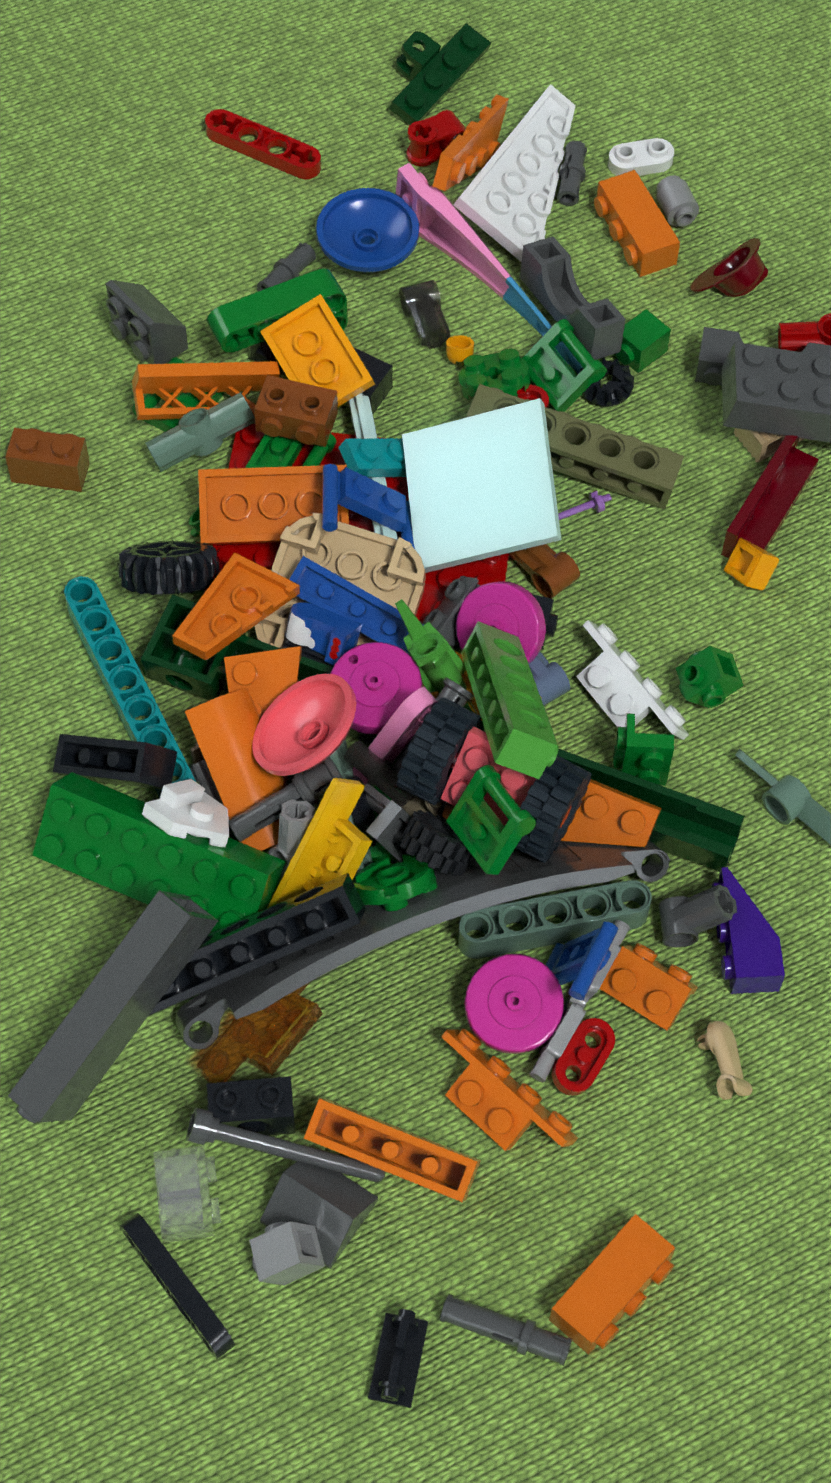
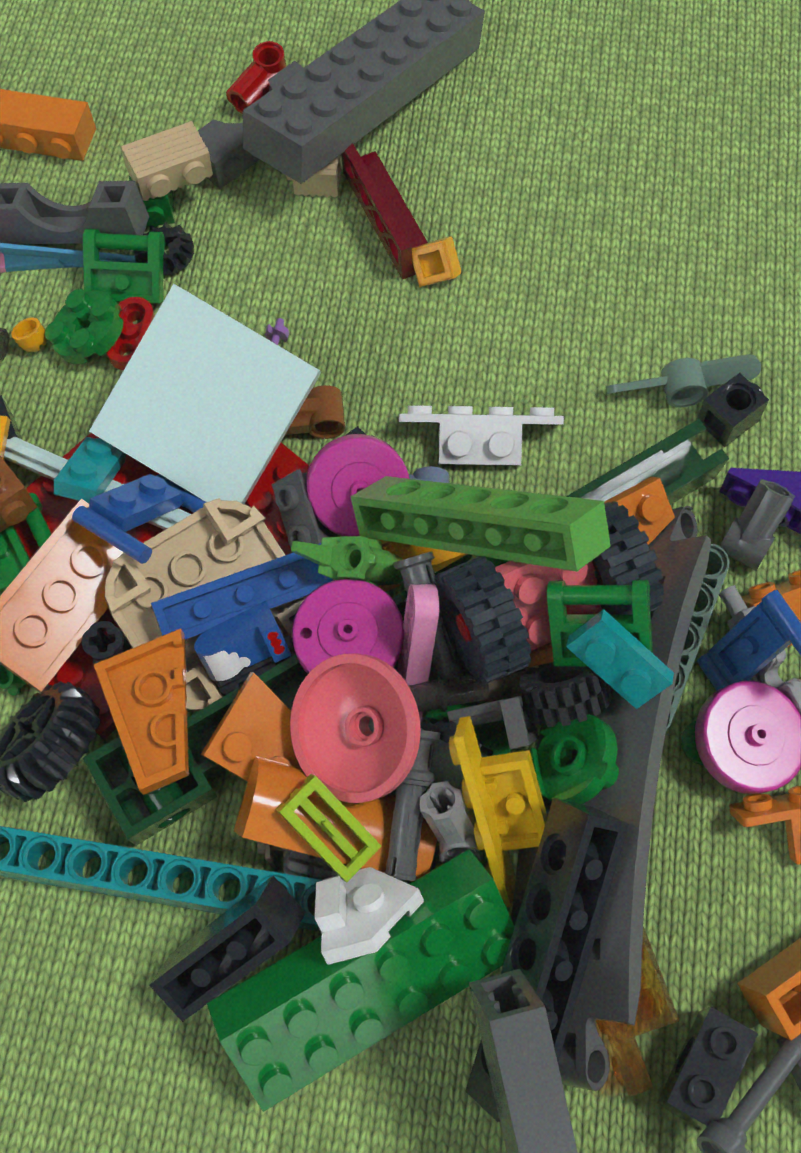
camera: 50 degrees left, 5 degrees up
(235, 725) = (299, 798): none -> lime tile
(260, 550) = (99, 645): none -> black bush
(473, 848) = (620, 659): none -> teal plate
(593, 442) = (244, 292): olive brick -> none
(643, 753) = (563, 468): green bracket -> none
(665, 328) = (167, 160): none -> tan brick
(677, 201) = (40, 80): light grey brick -> none
(709, 677) = (536, 352): green brick -> none
(736, 273) = (148, 88): dark red piece -> none
(790, 832) = (728, 423): none -> black brick

